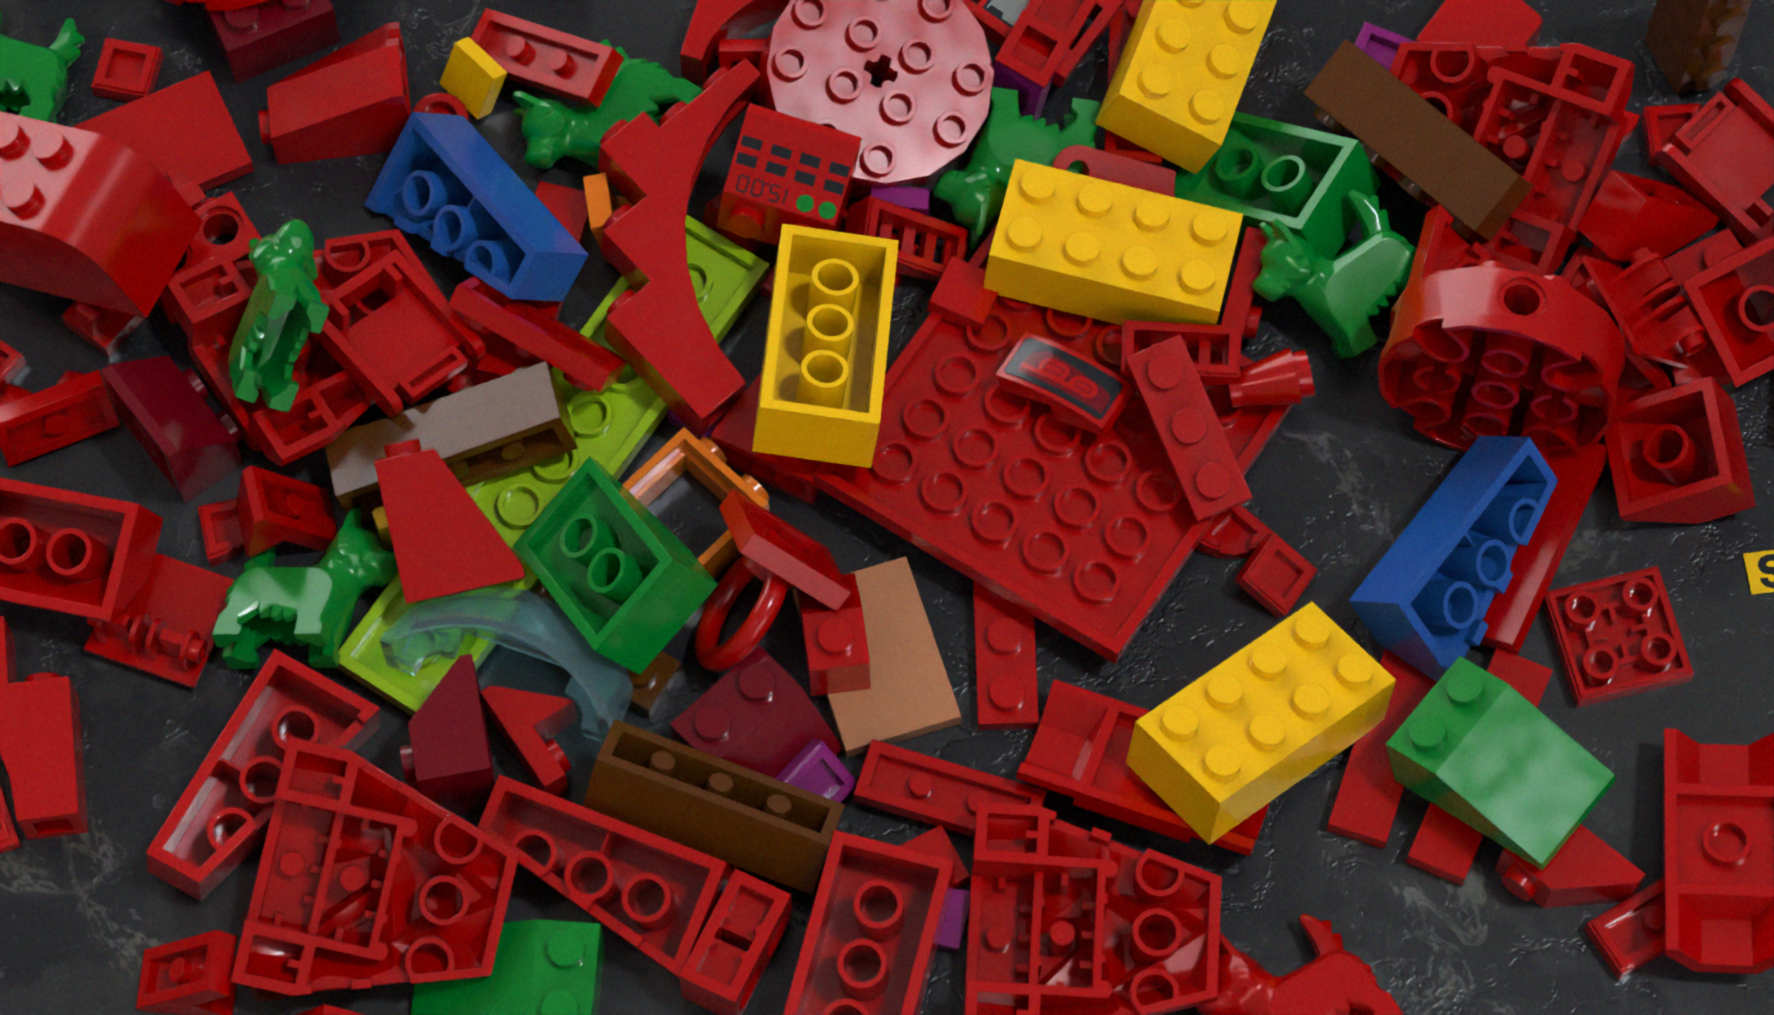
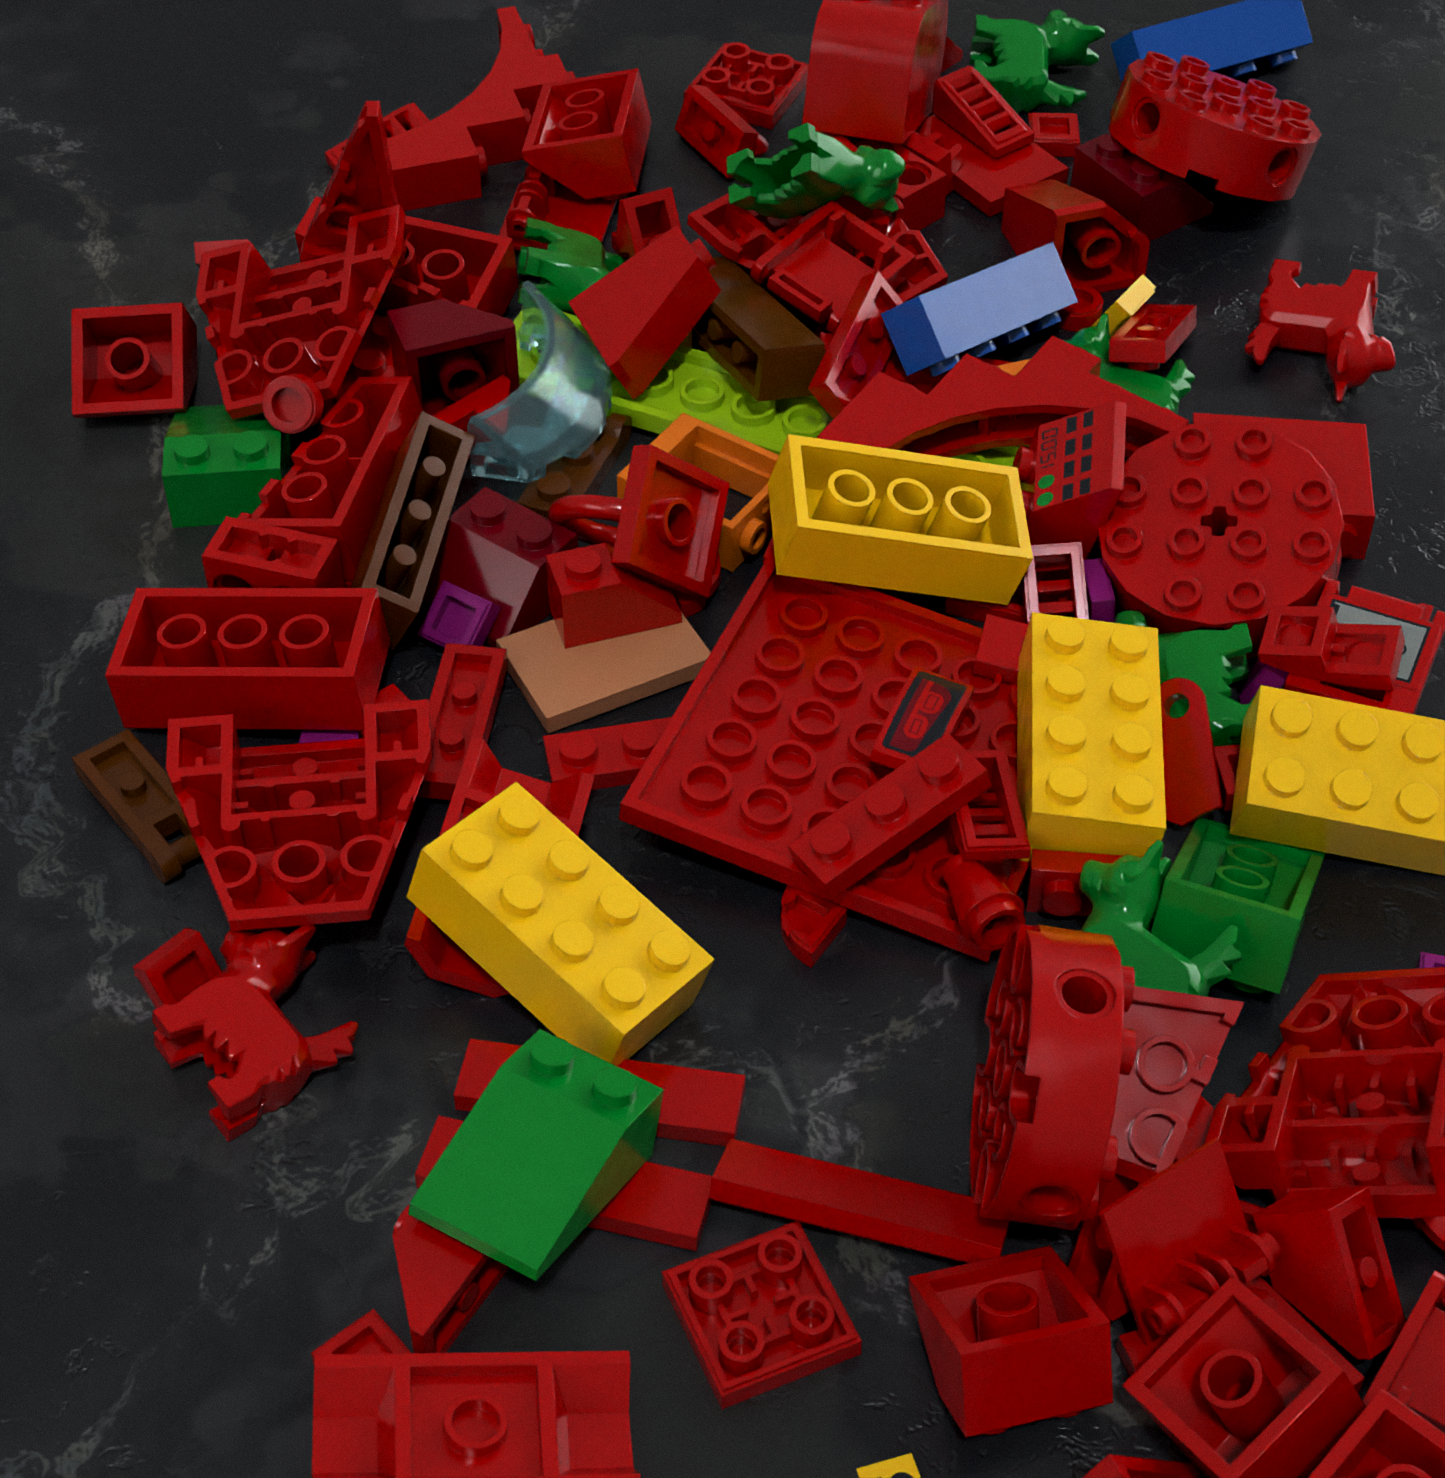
camera: 80 degrees right, 20 degrees down
(111, 111) = (977, 110): none -> red slope
(174, 423) = (699, 157): dark red slope -> none
(257, 781) = (357, 186): none -> red wing
(522, 896) = (292, 403): none -> red tile
(614, 568) = (600, 427): green slope -> none
(1275, 575) = (761, 957): red tile -> none
(1417, 140) = (1330, 994): reddish brown brick -> none
(1456, 554) = (793, 1098): blue wedge -> none

